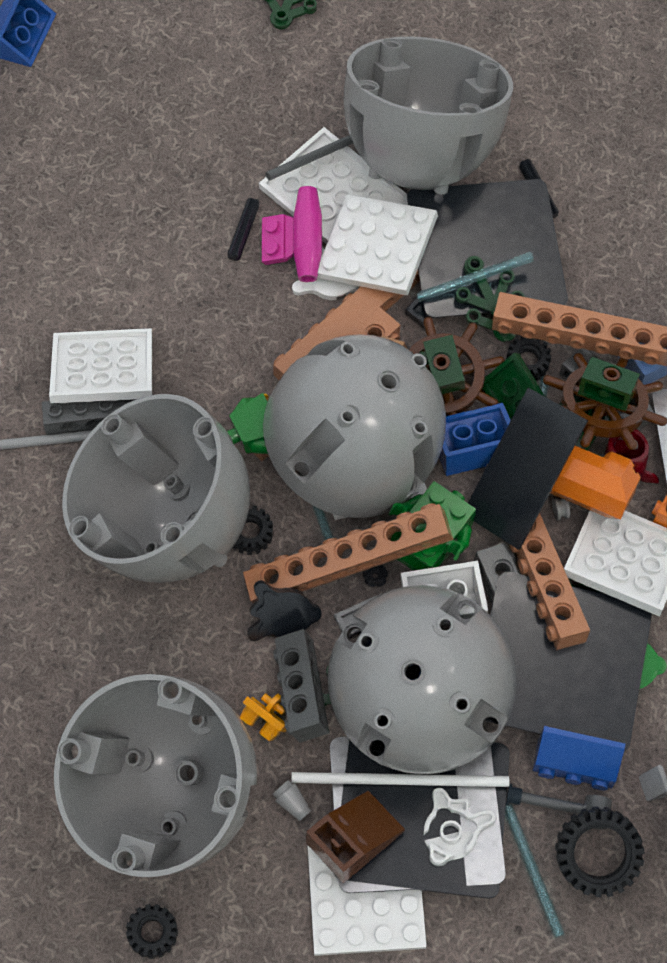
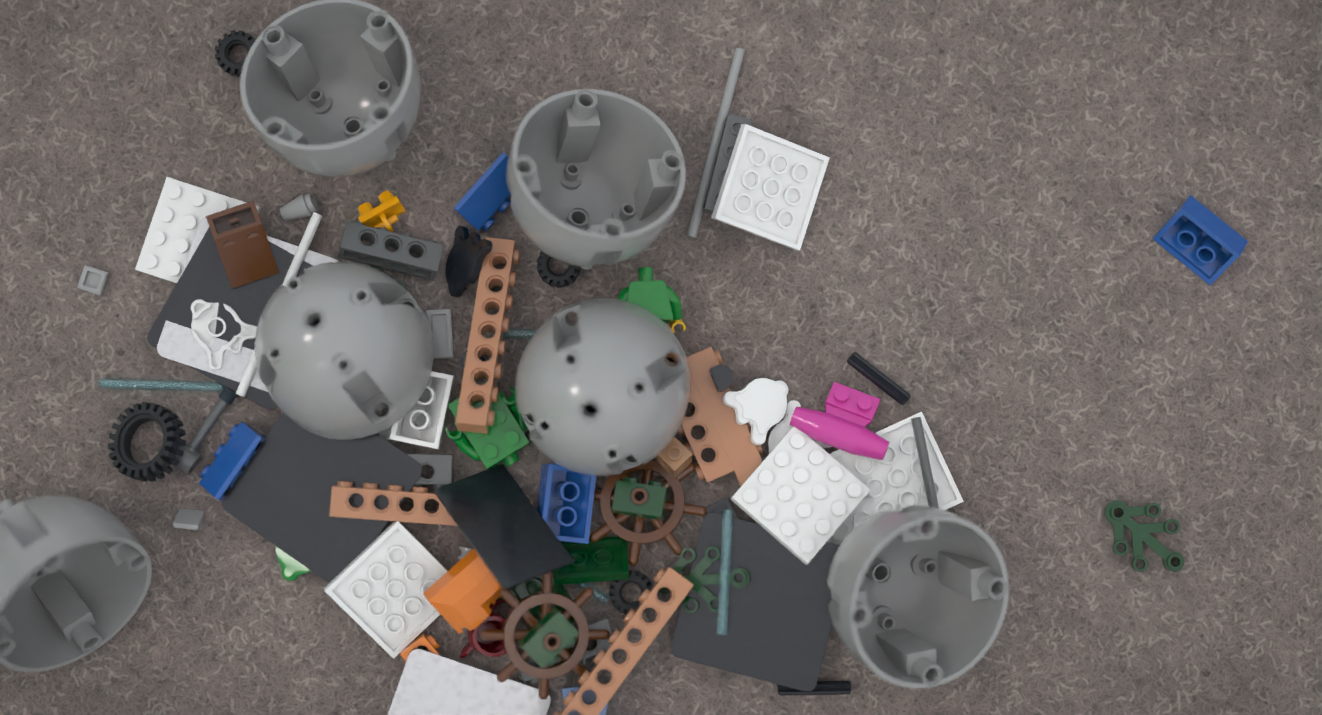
camera: 115 degrees right, 20 degrees up
(203, 614) = (486, 197): none -> blue slope
(300, 339) = (722, 377): none -> black brick
(312, 308) = (759, 404): none -> white tile

